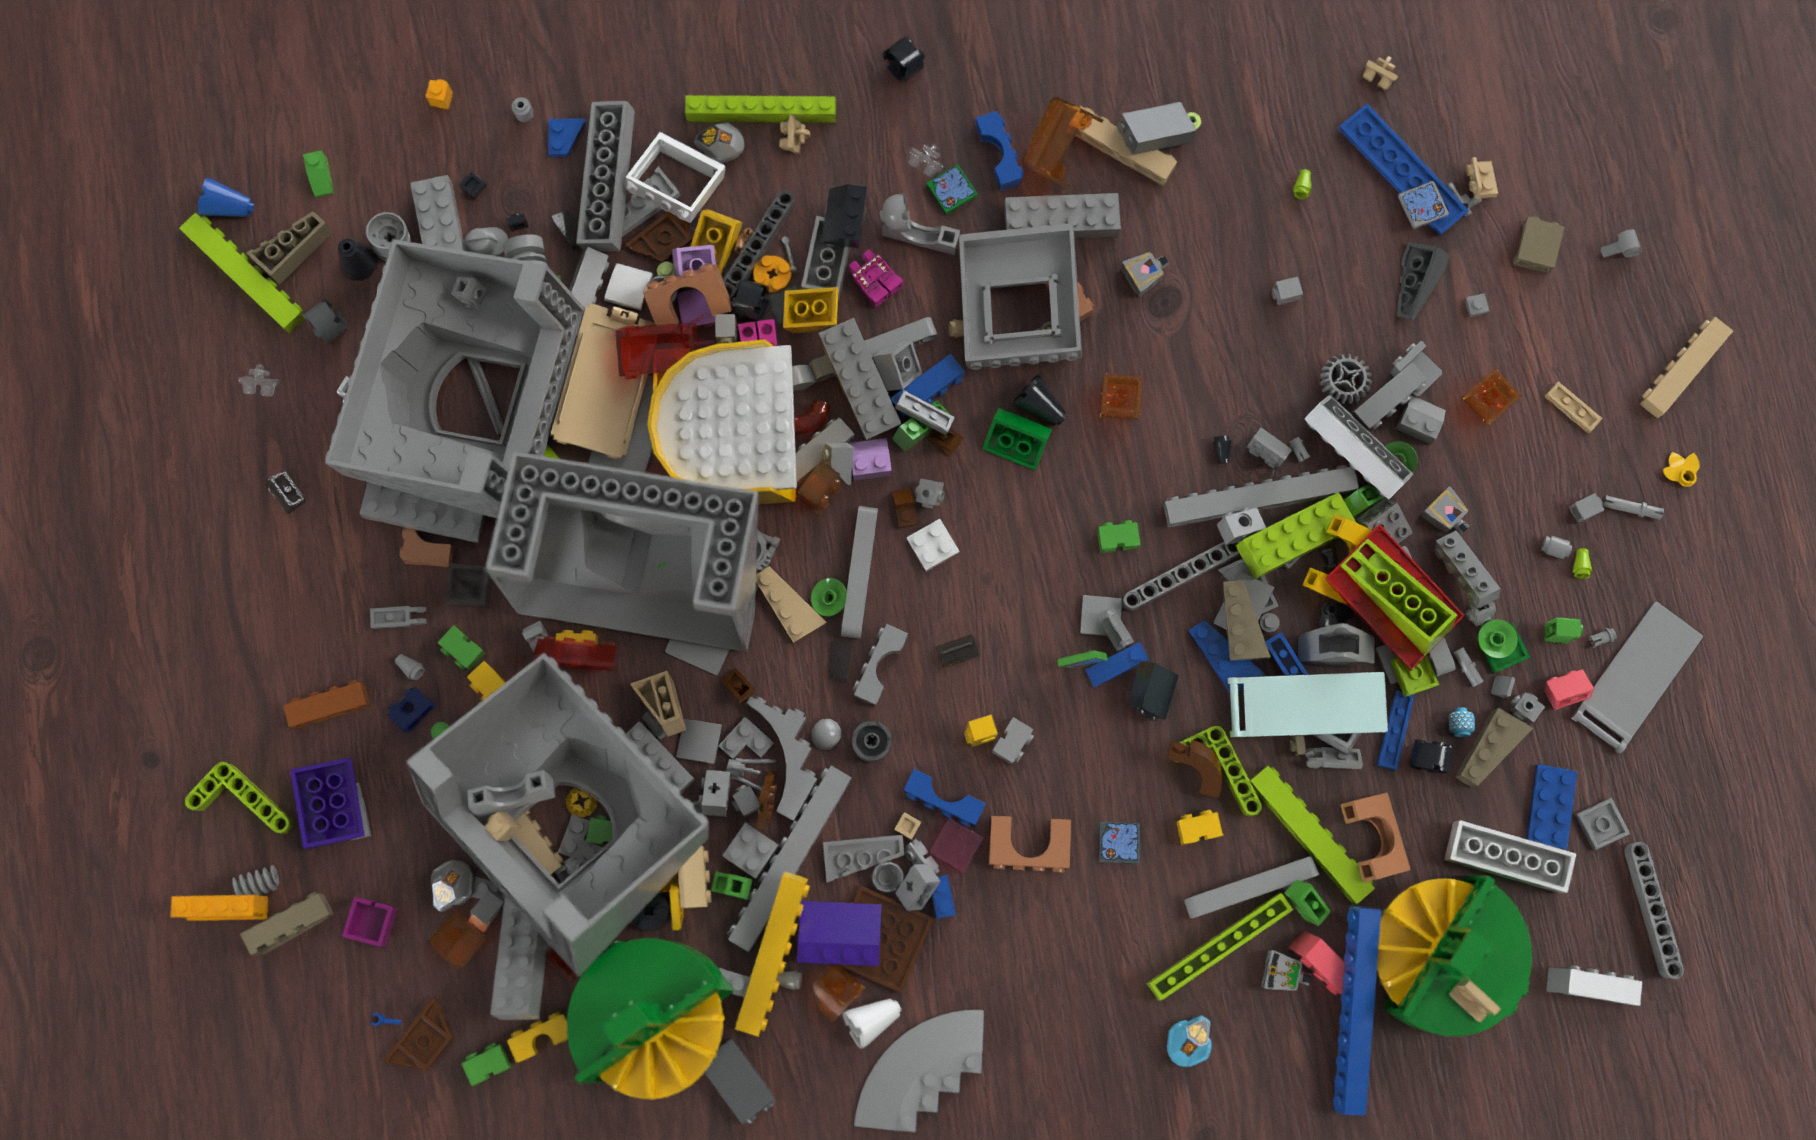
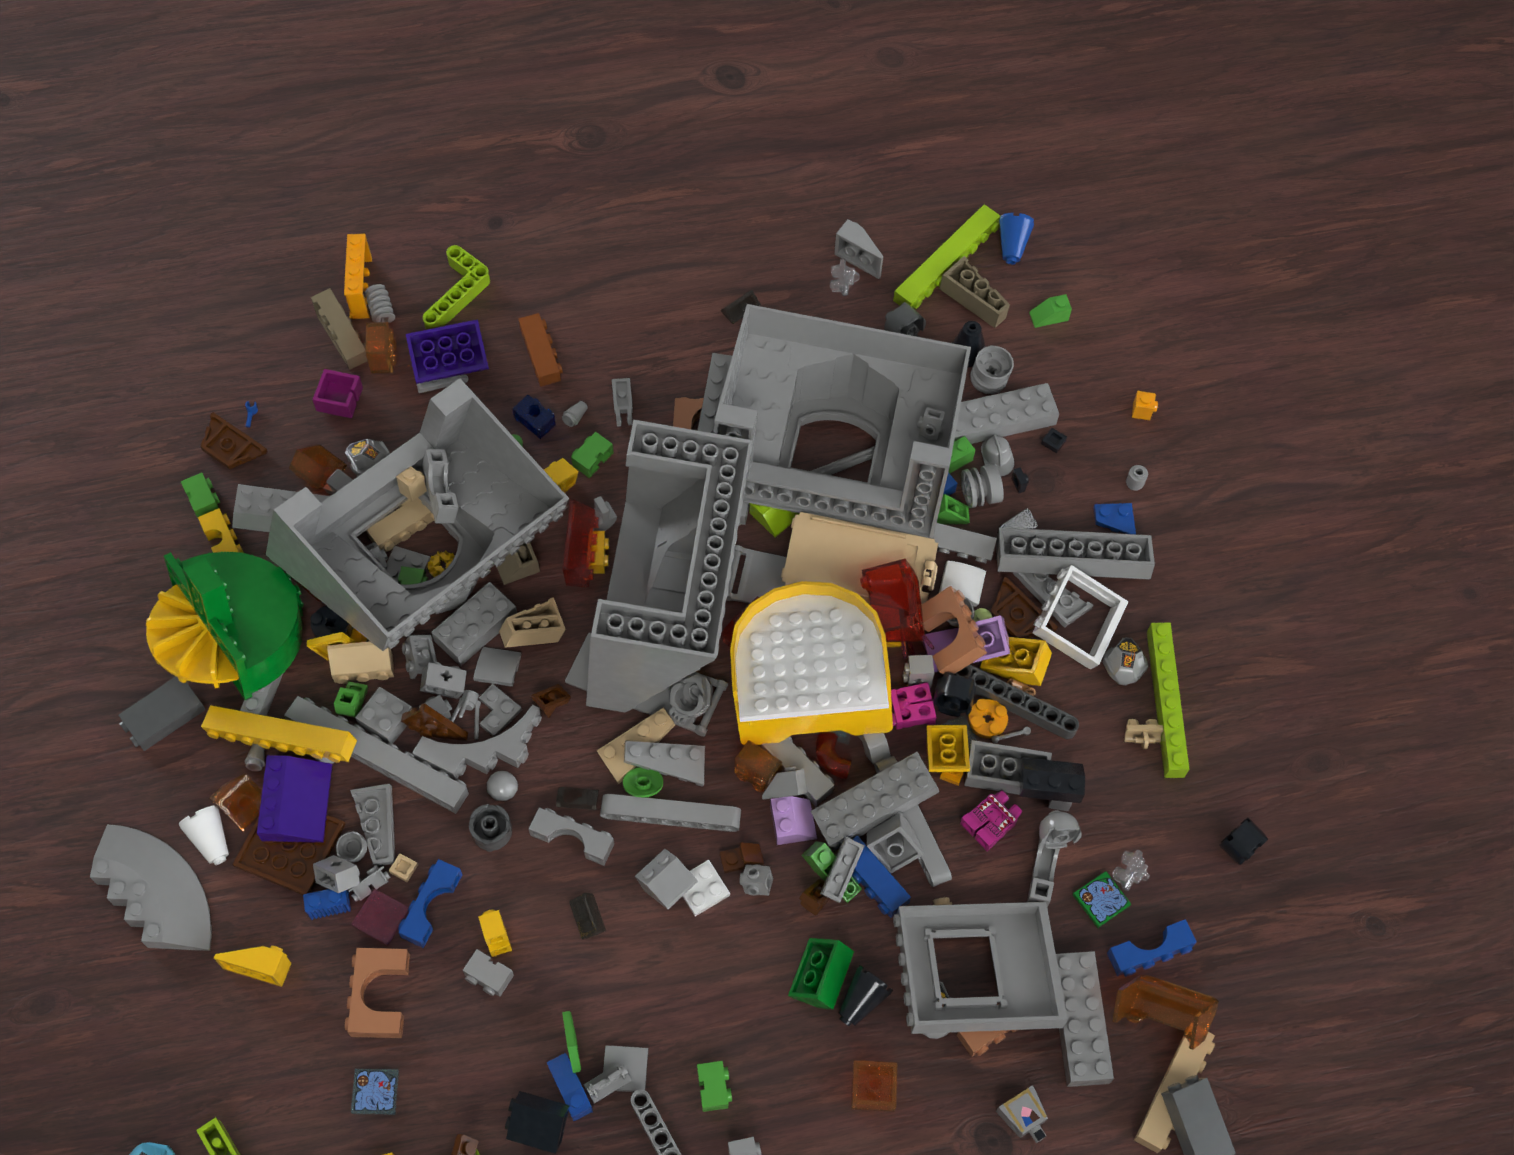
camera: 90 degrees right, 15 degrees down
(226, 361) = (858, 249): none -> light grey slope
(312, 877) = (380, 347): none -> clear orange brick
(807, 567) = (675, 760): none -> light grey wing
(928, 574) = (666, 879): none -> light grey slope
(1004, 953) = (258, 963): none -> yellow slope

